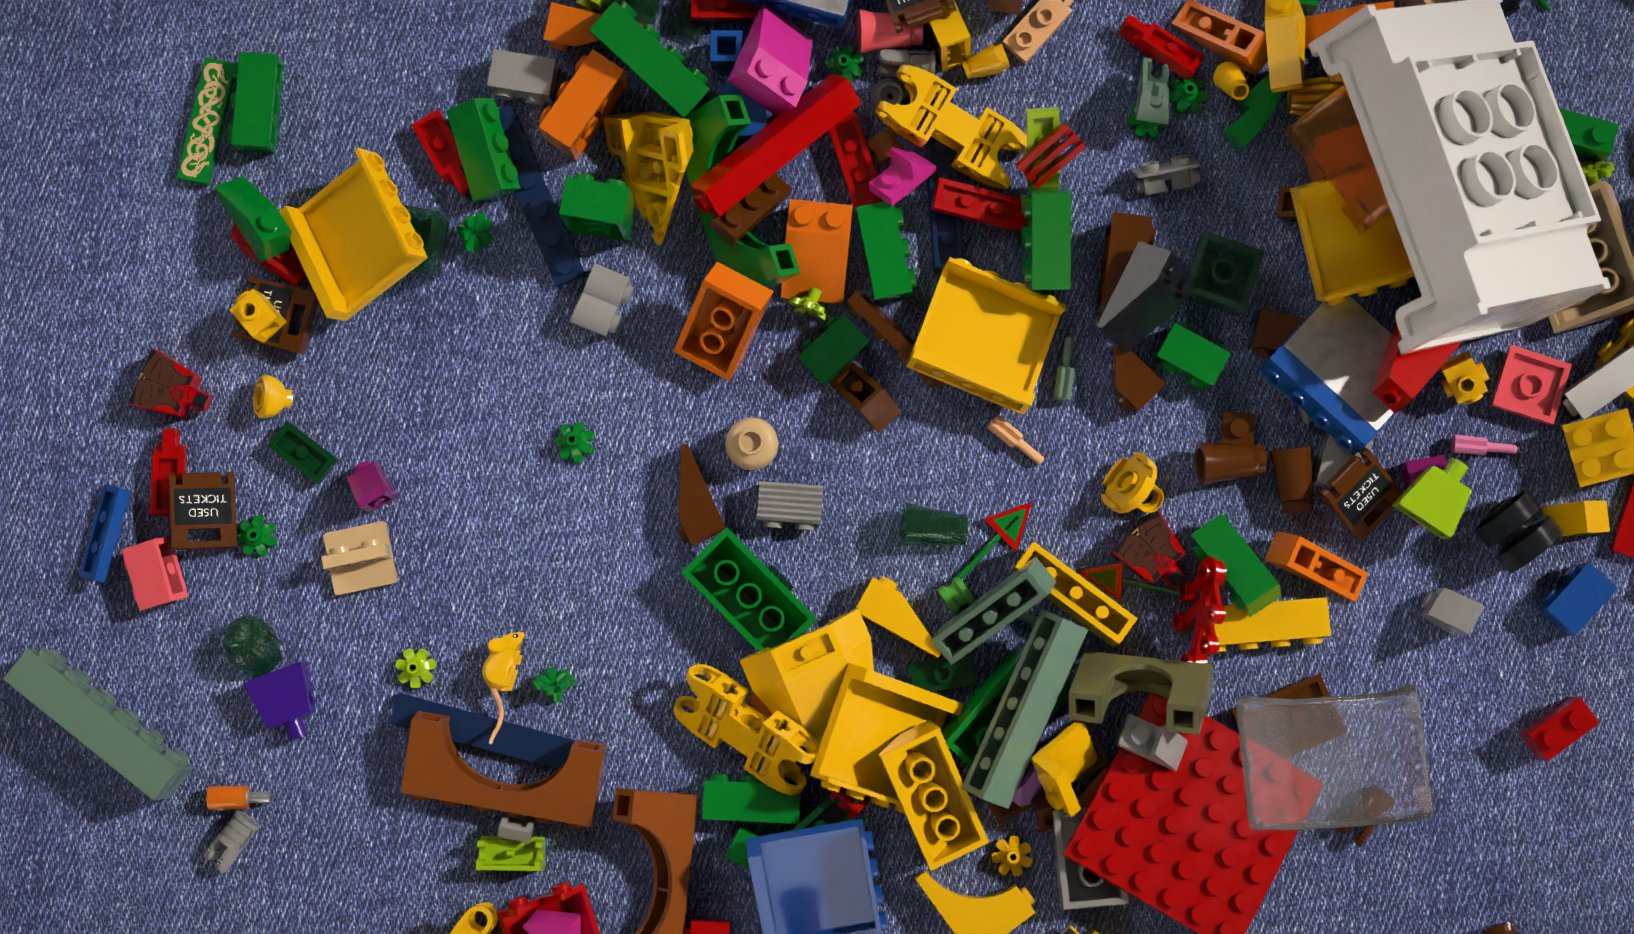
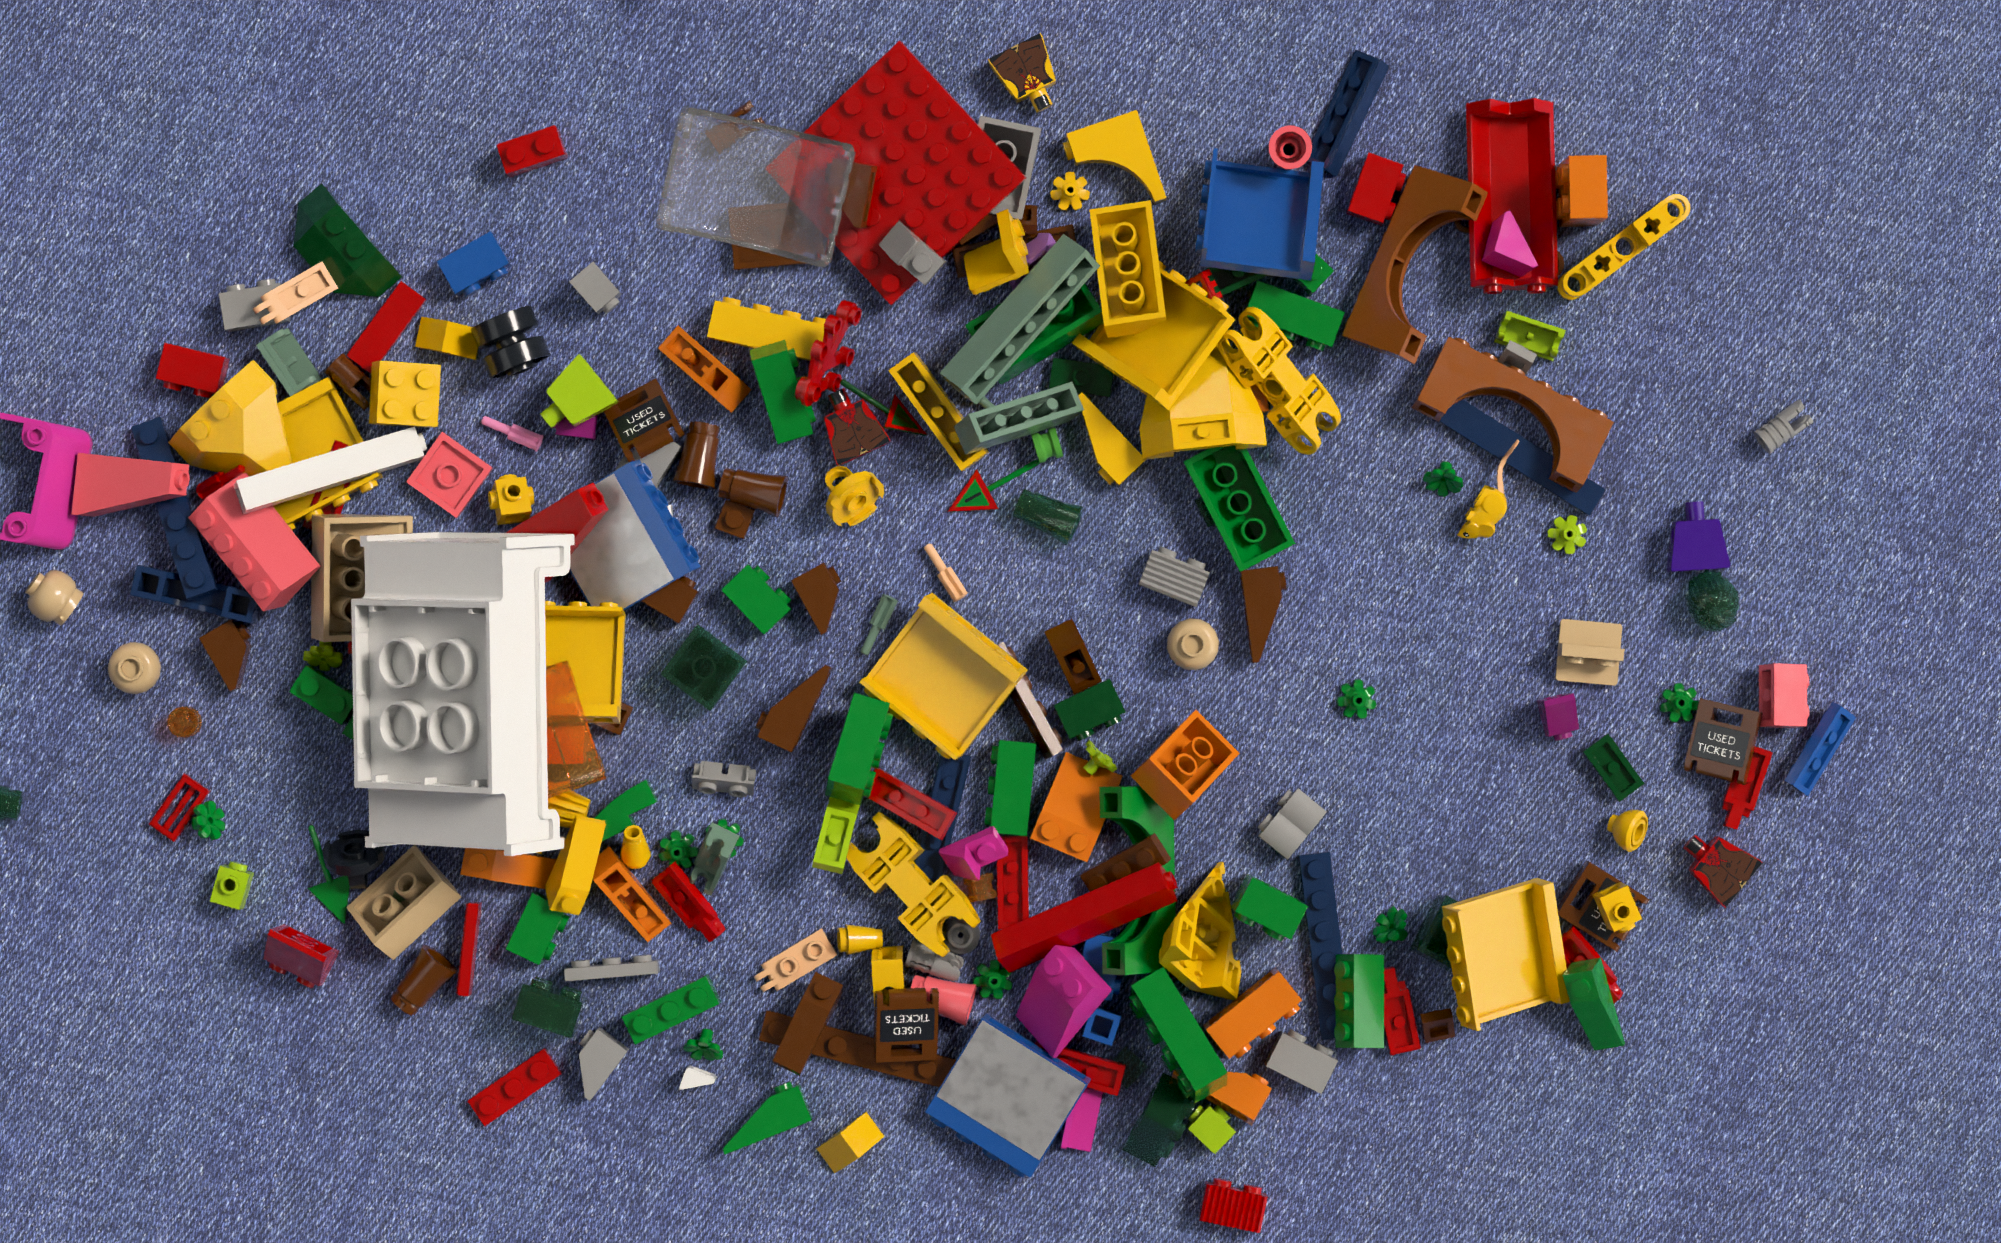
camera: 170 degrees left, 5 degrees up
(99, 722) = (1872, 571): sand green brick -> none
(207, 122) = (1612, 1113): green tile -> none
(234, 797) = (1769, 466): orange piece -> none
(256, 102) = (1561, 1115): green brick -> none
(401, 151) = (1437, 1025): none -> reddish brown plate
(1065, 158) = (849, 805): red tile -> none
(1108, 675) = (930, 327): olive arch -> none
(1145, 295) = (788, 664): black slope -> none
(1226, 786) = (859, 193): none -> reddish brown slope

